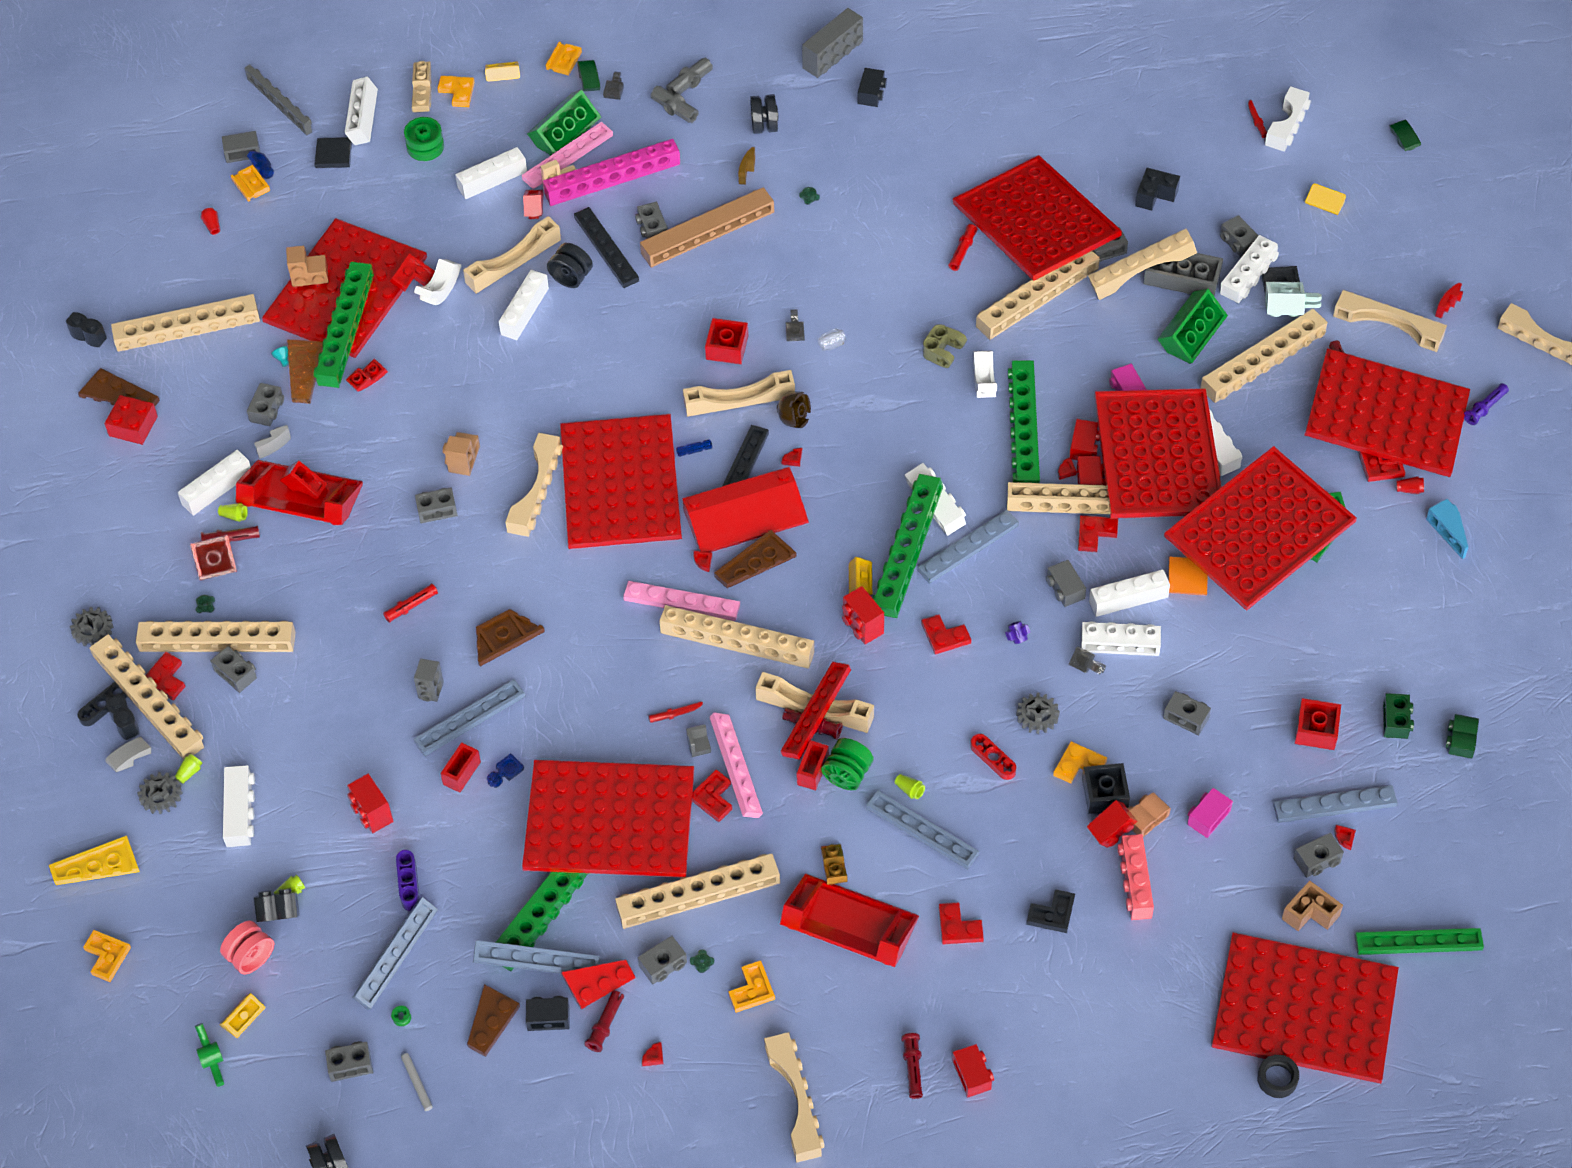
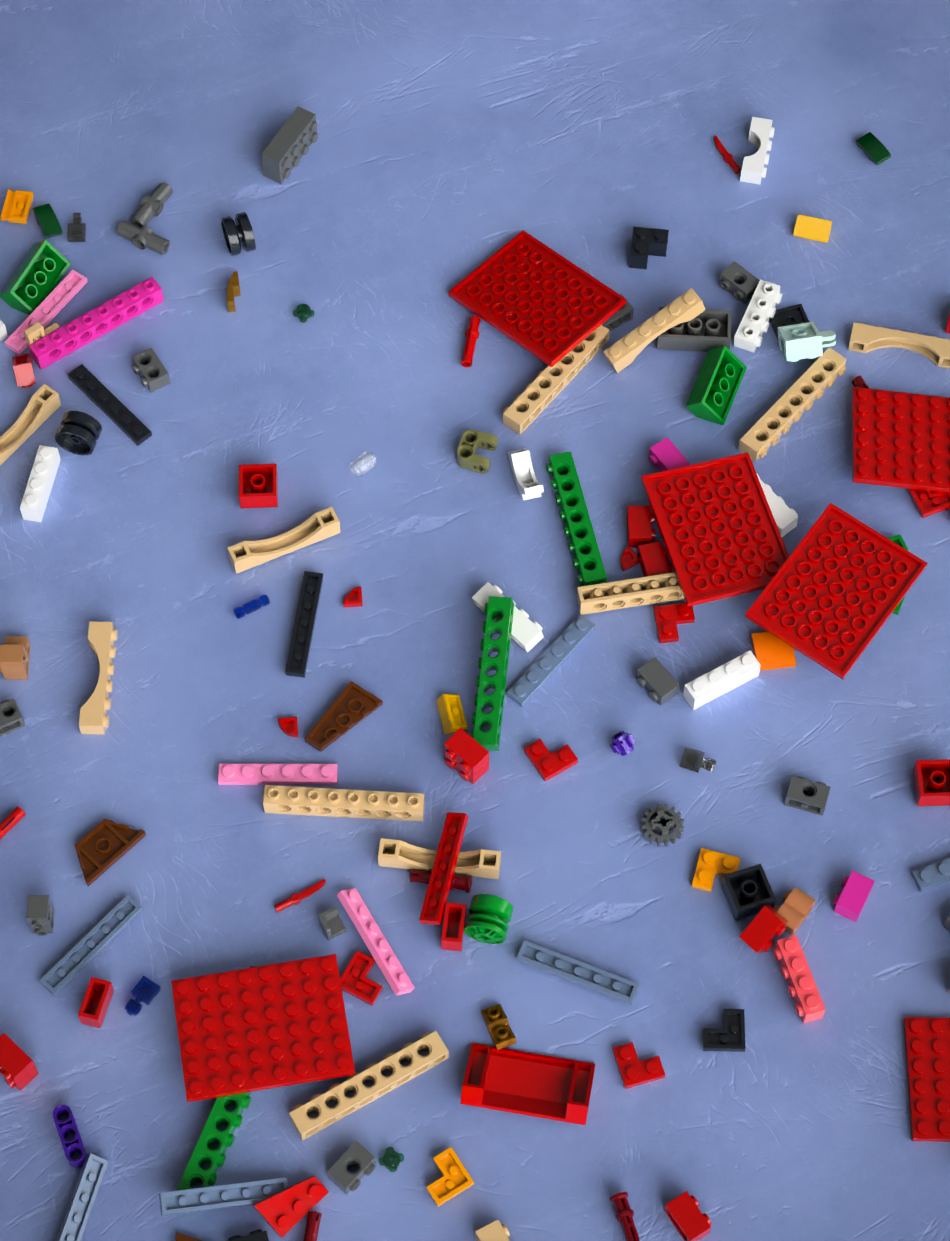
camera: 15 degrees left, 5 degrees up
(620, 481) = (184, 657): red plate -> none
(707, 227) = (208, 365): medium nougat brick -> none
(745, 510) = (319, 665): slope -> none
(794, 409) = (343, 546): dark brown cylinder -> none
(795, 329) = (322, 459): clear smoke plate -> none
(871, 87) = (338, 185): black brick -> none
(912, 787) = (555, 928): lime cone -> none
(995, 765) = (613, 875): red beam -> none
(1121, 638) = (724, 729): white brick -> none

